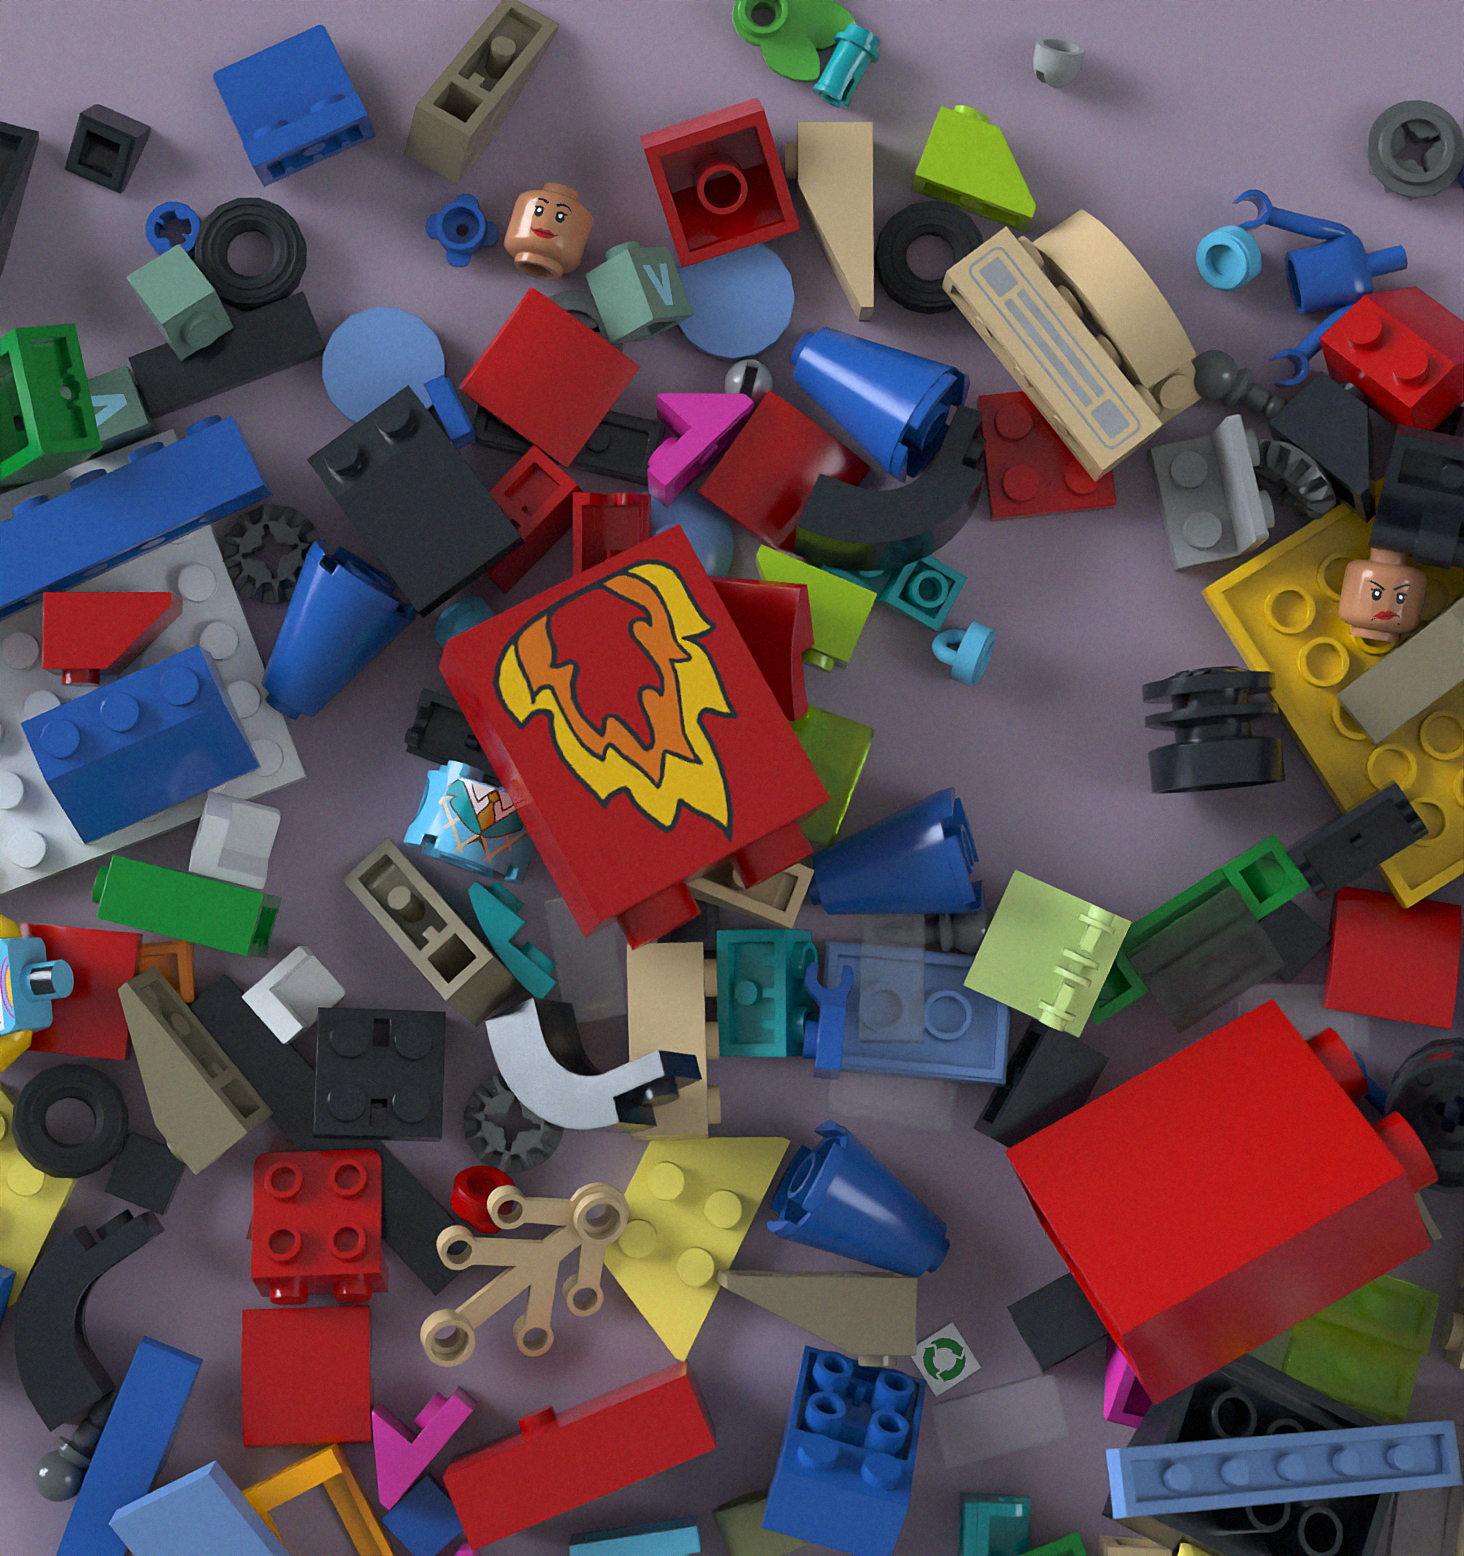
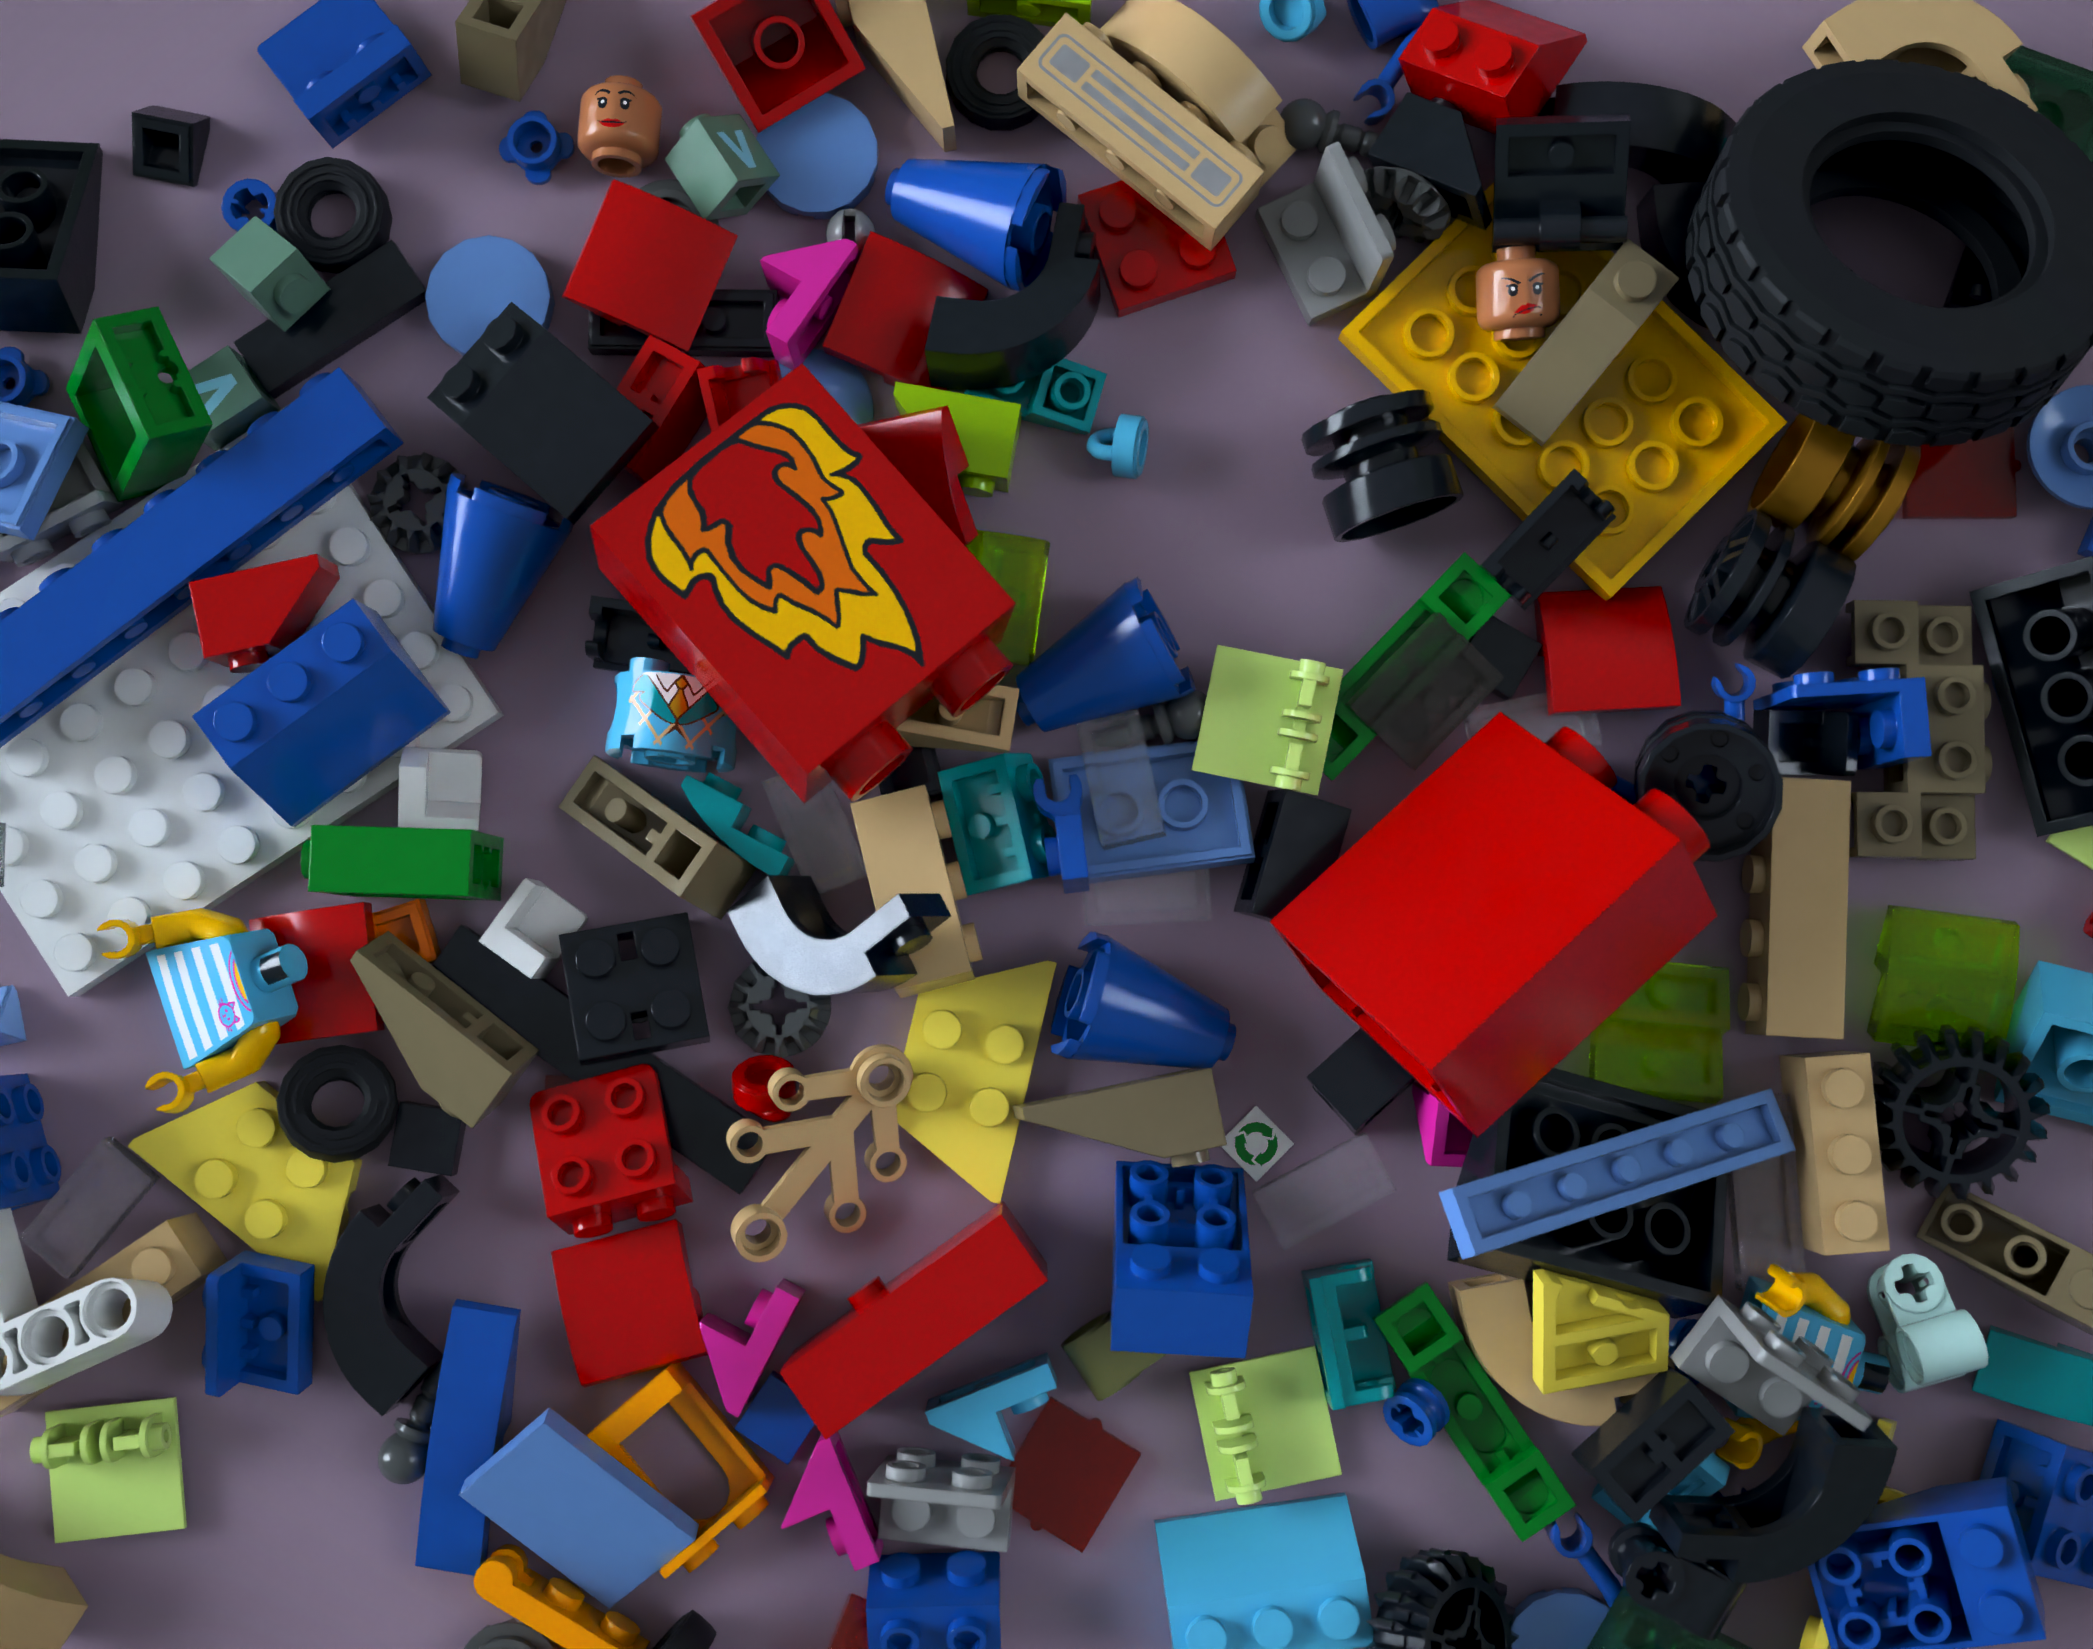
camera: 10 degrees left, 0 degrees up
(451, 411) = (560, 319): blue tile -> none

